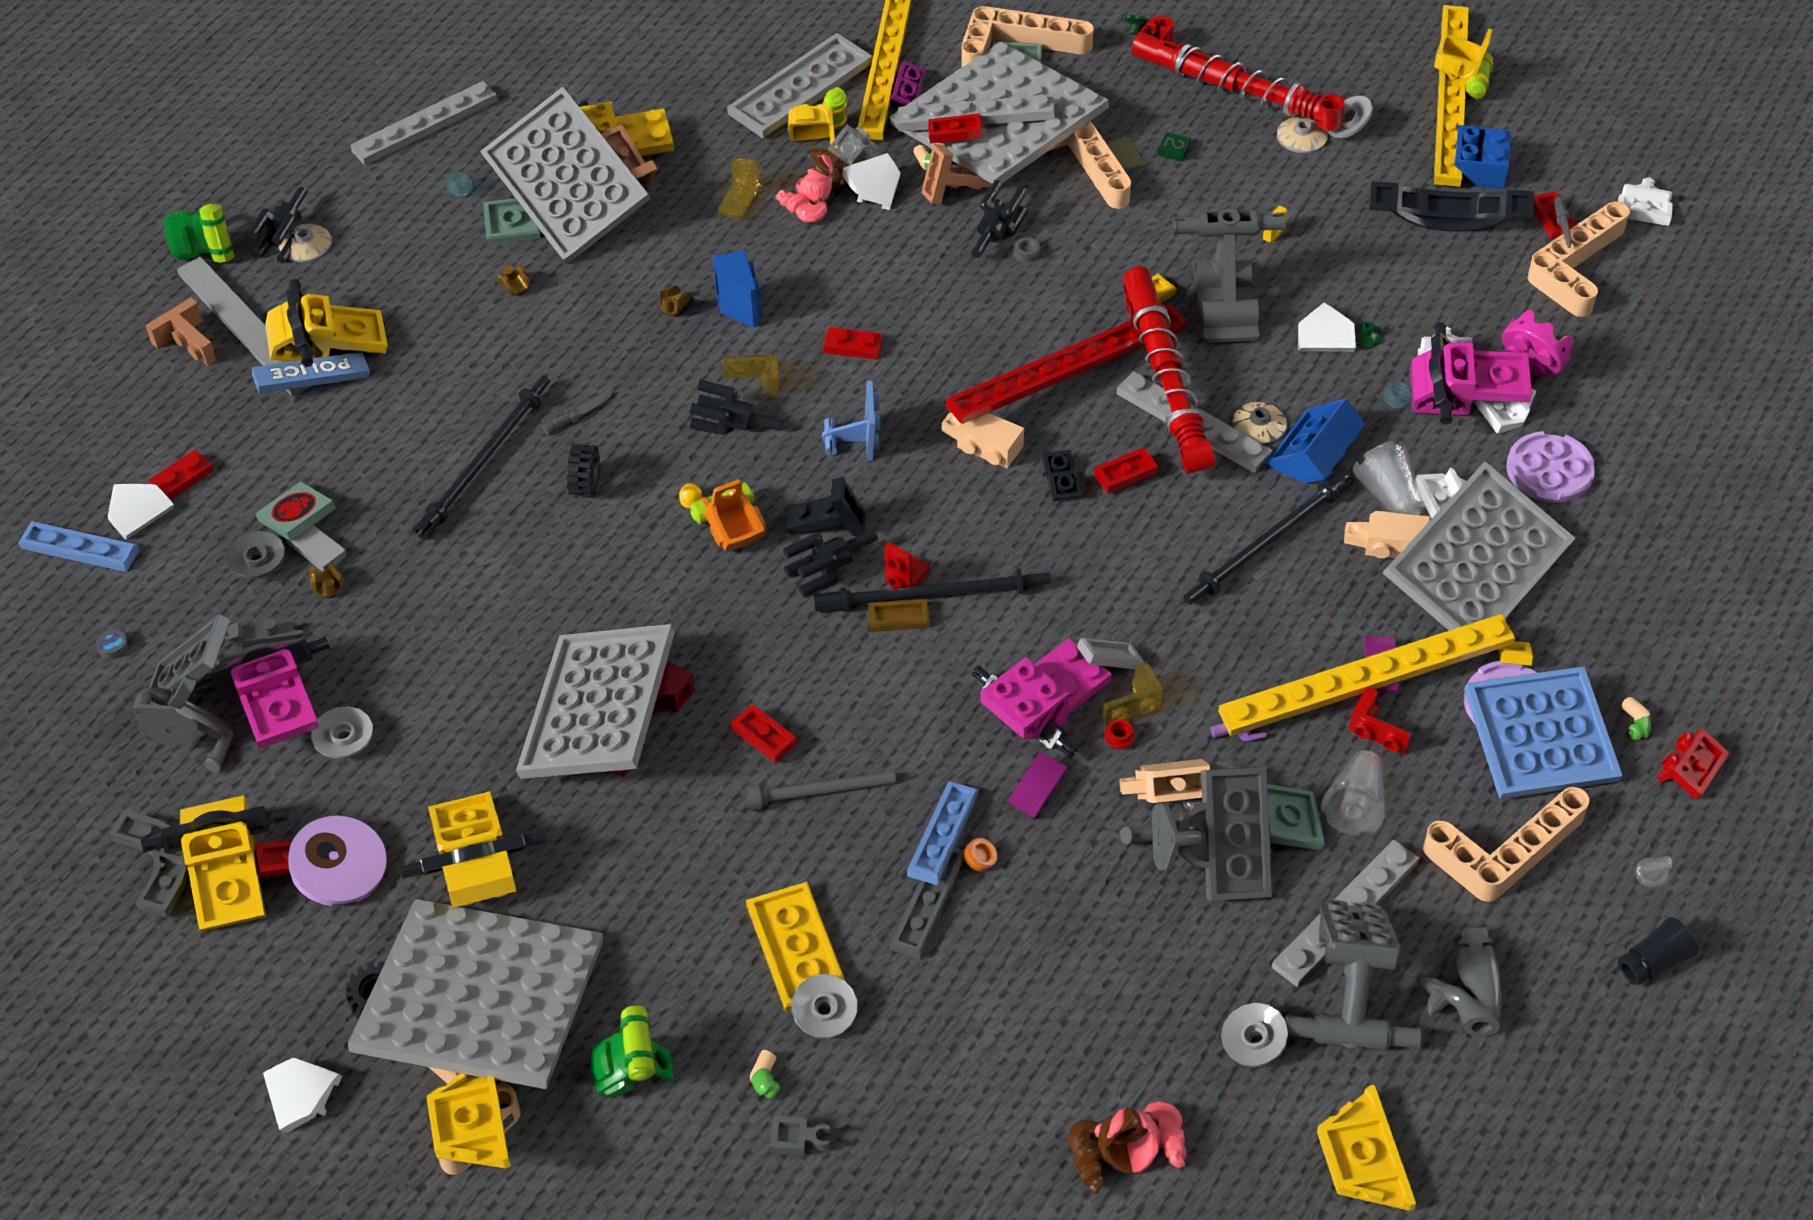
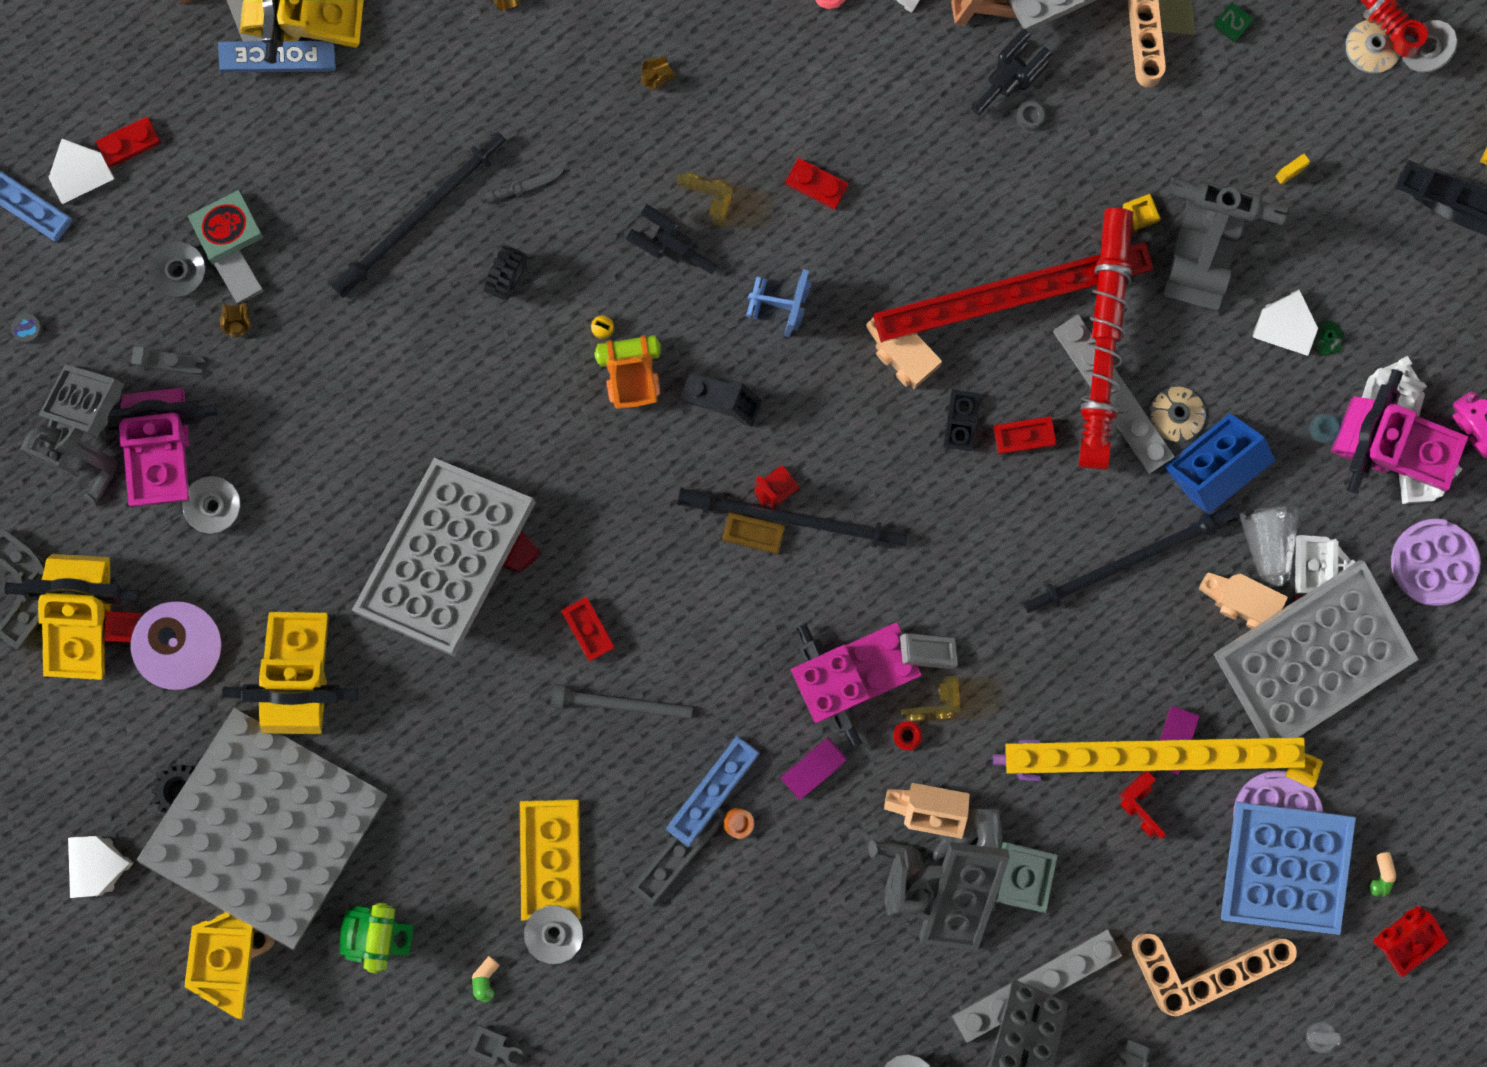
camera: 15 degrees right, 30 degrees up
(736, 288) = (718, 85): blue slope -> none
(824, 558) = (704, 451): black plant -> none
(1357, 796) = (1095, 875): clear cone -> none

